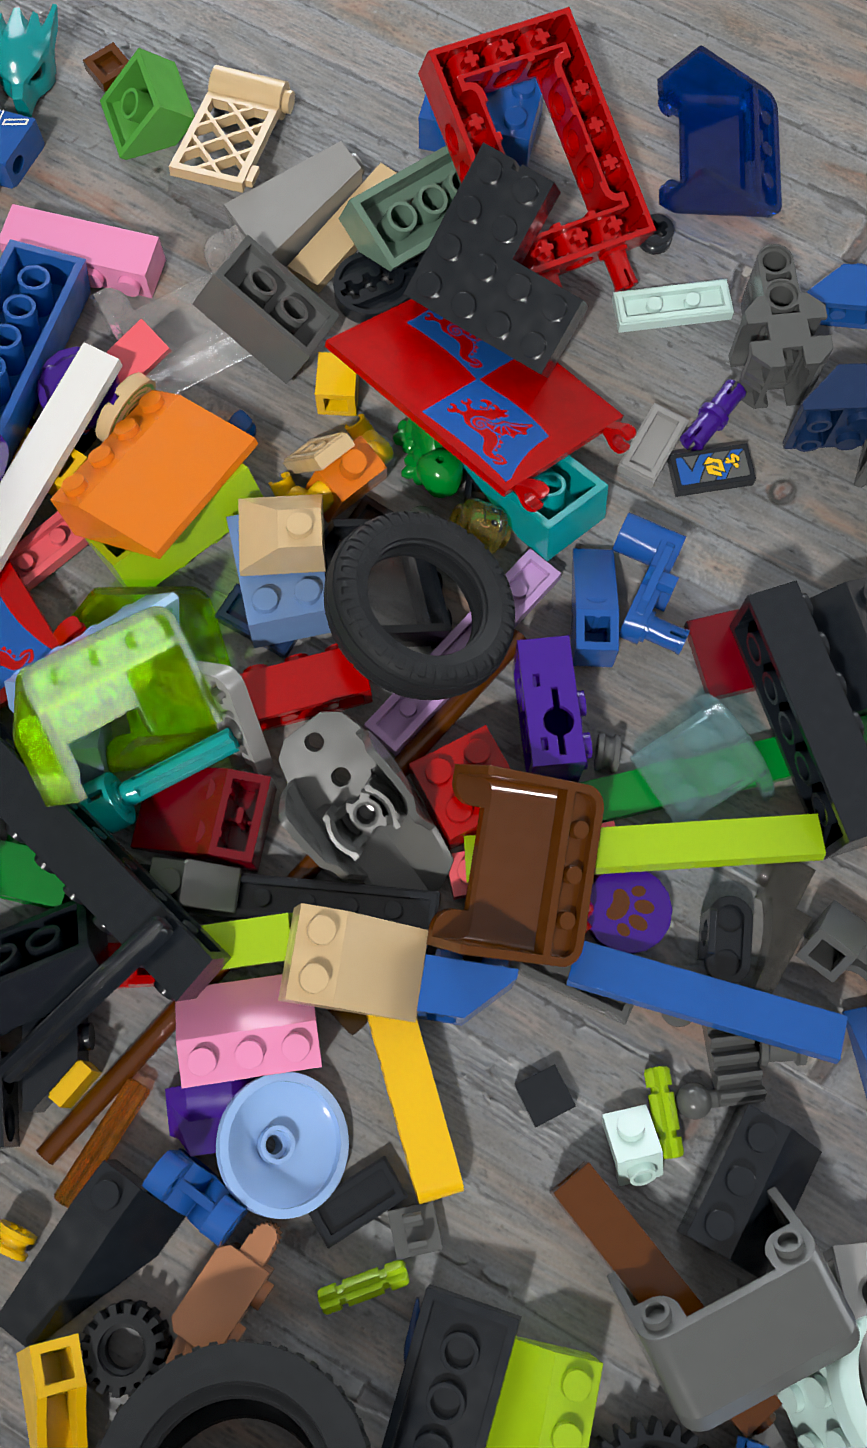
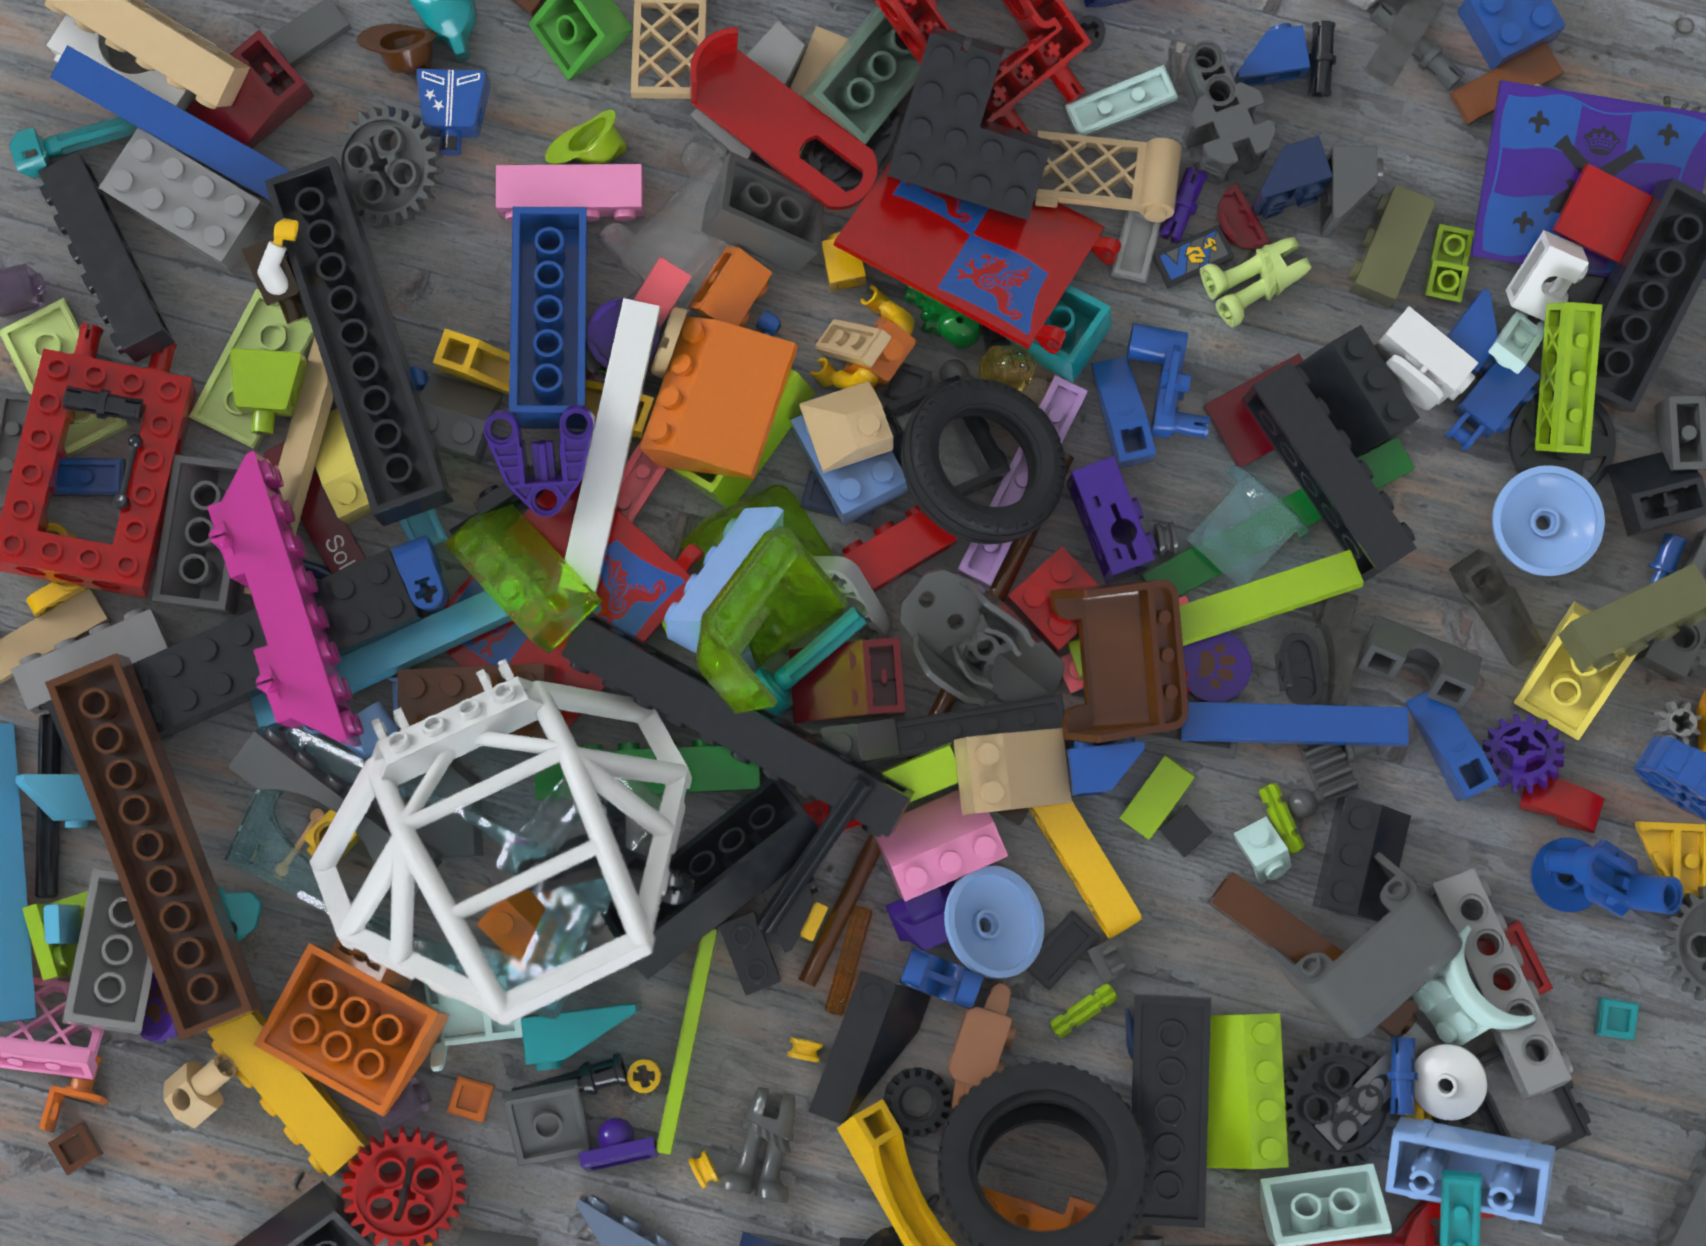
camera: 15 degrees left, 10 degrees up
(126, 212) = (589, 142): none -> lime piece
(214, 375) = (731, 287): none -> orange brick
(299, 214) = (773, 119): none -> red piece
(521, 1045) = (1157, 797): none -> lime slope
(683, 388) = (1153, 182): none -> tan piece
(771, 447) = (1239, 221): none -> dark red plate
(792, 493) = (1273, 273): none -> yellowish green piece

